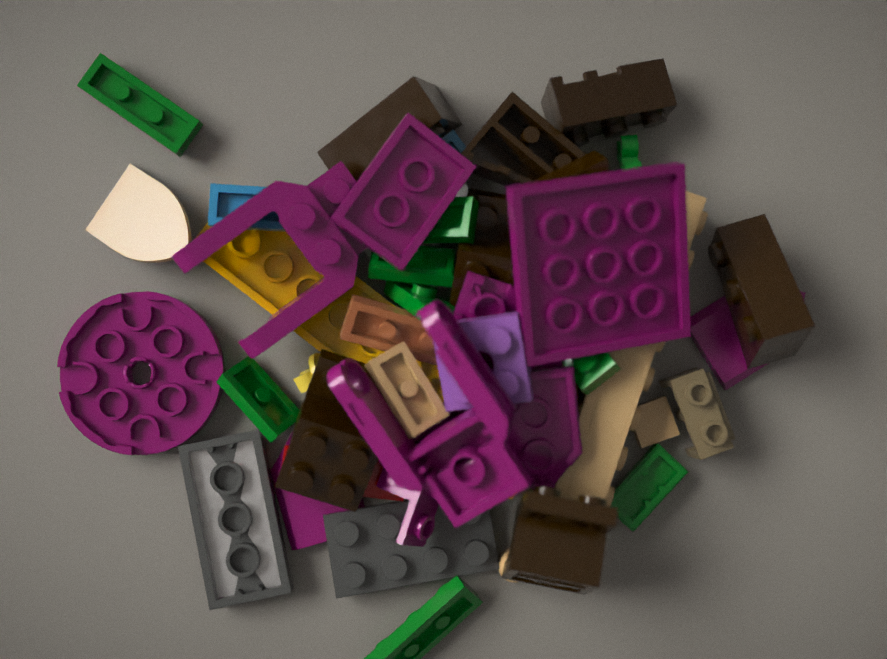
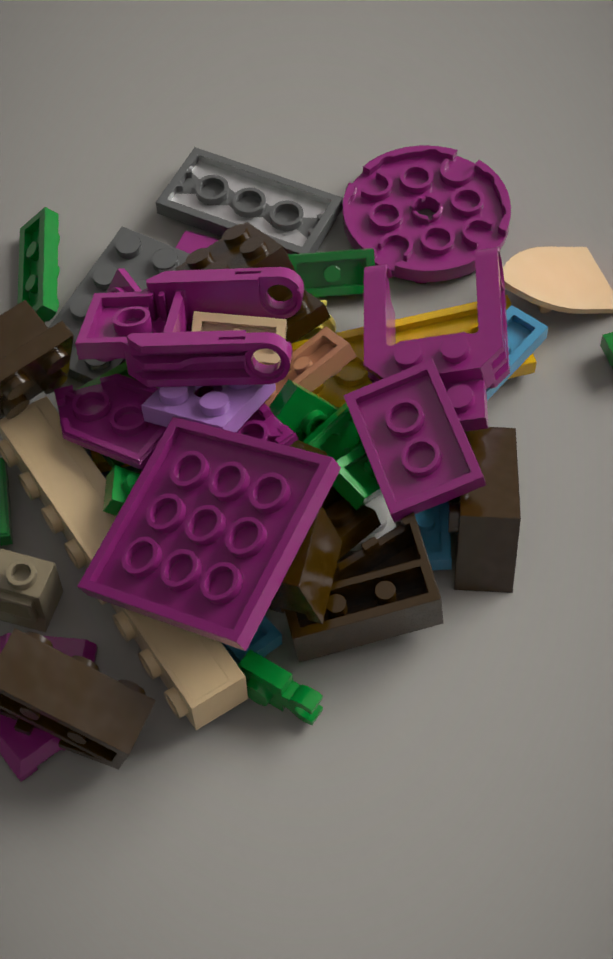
camera: 135 degrees right, 30 degrees down
(609, 102) = (367, 707): dark brown wedge -> none
(655, 422) = (37, 543): tan tile -> none

